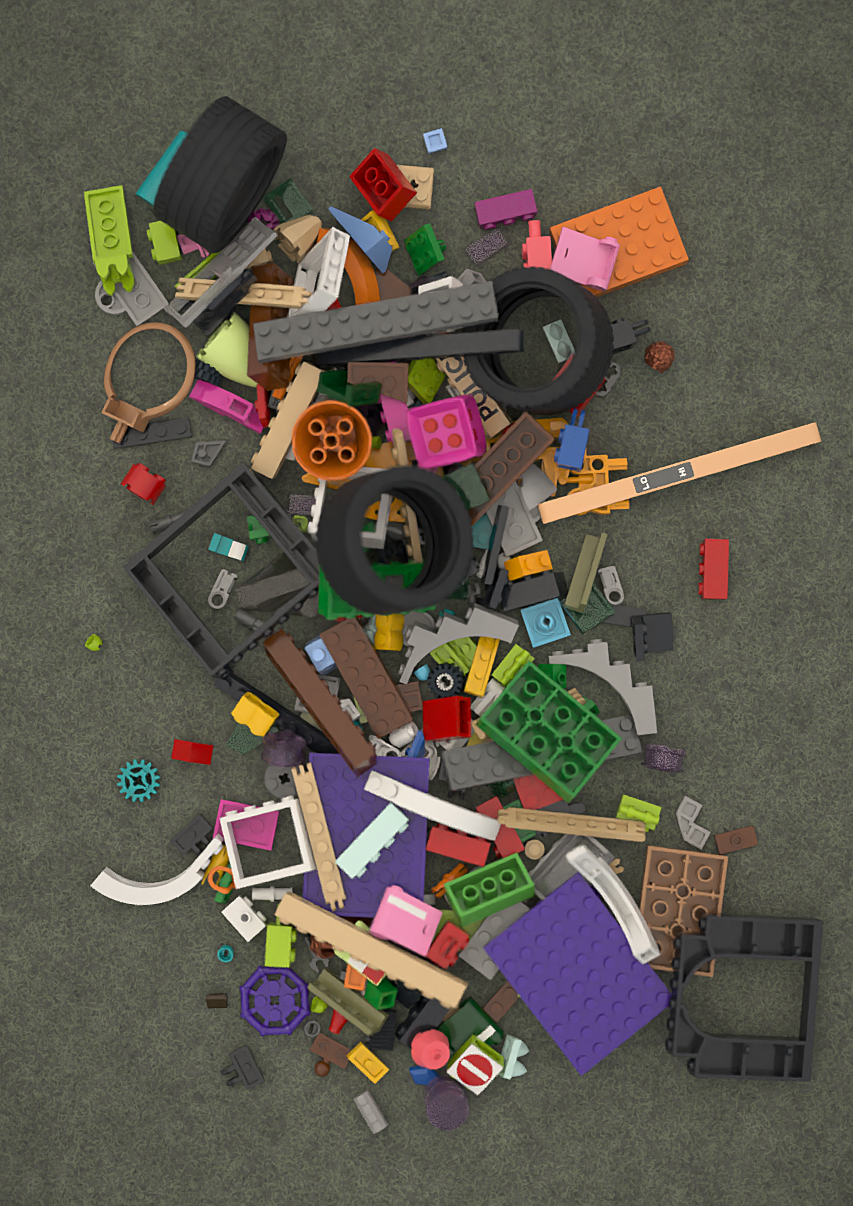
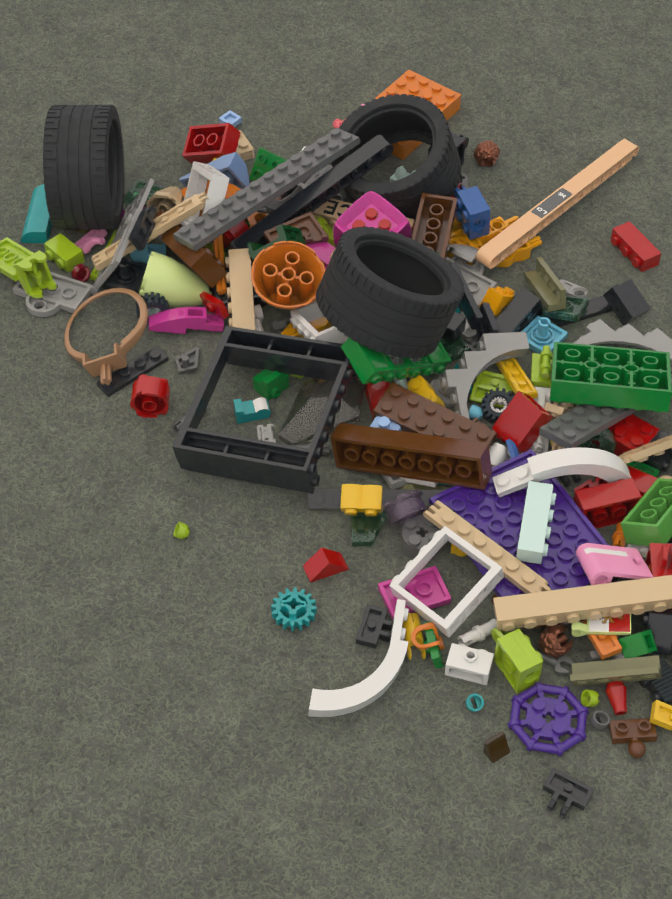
camera: 35 degrees left, 35 degrees down
(167, 277) = (81, 273): none -> dark red tile
(505, 209) = (309, 130): magenta brick -> none

